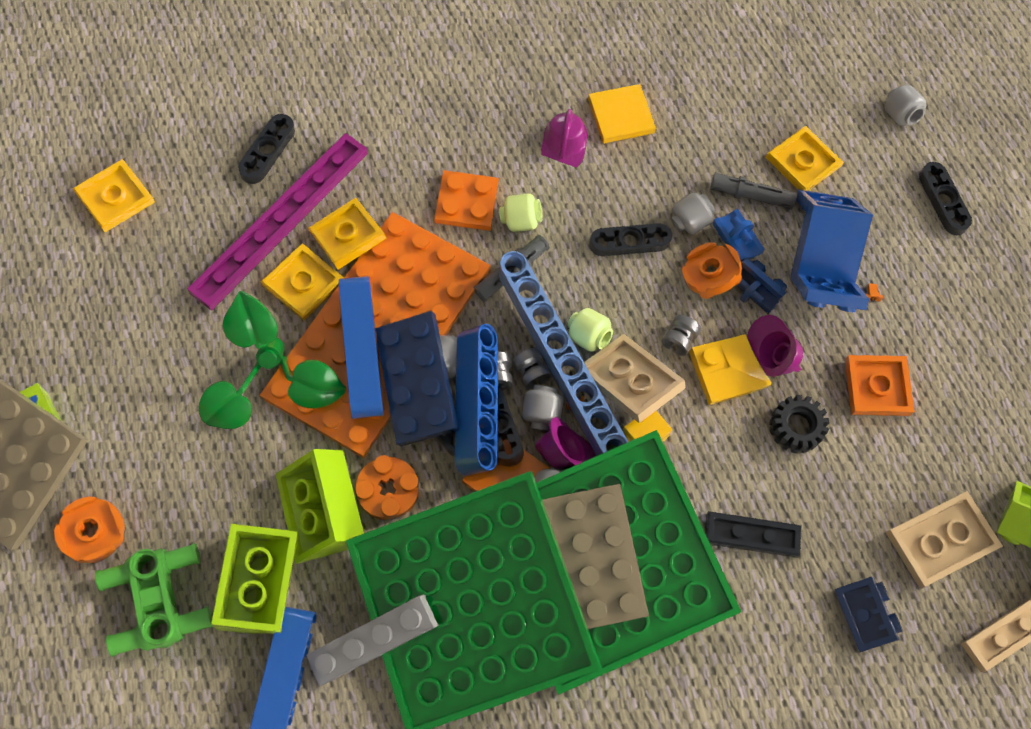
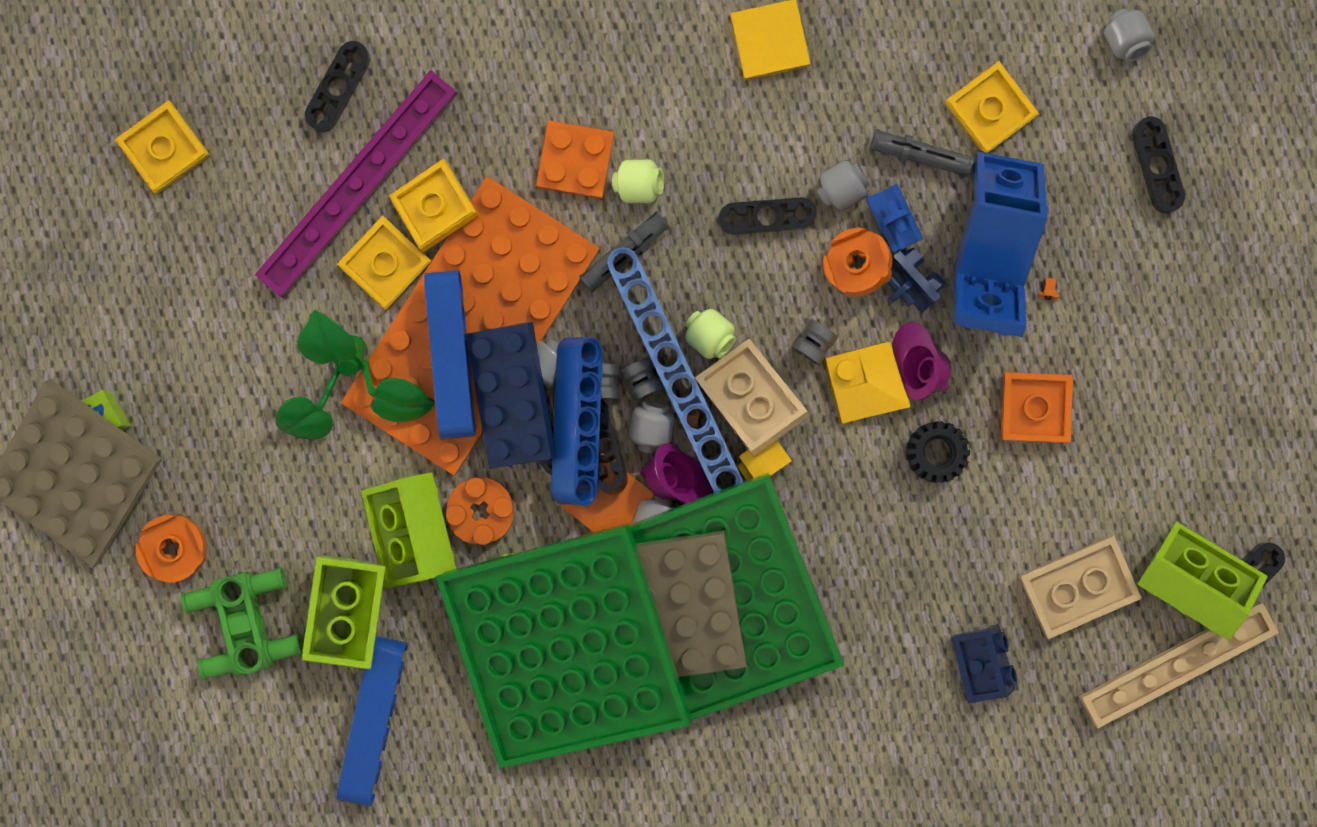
camera: 15 degrees right, 20 degrees up
(372, 640) = (463, 677): light grey plate -> none
(565, 139) = (698, 77): magenta piece -> none
(753, 534) = (872, 573): black tile -> none

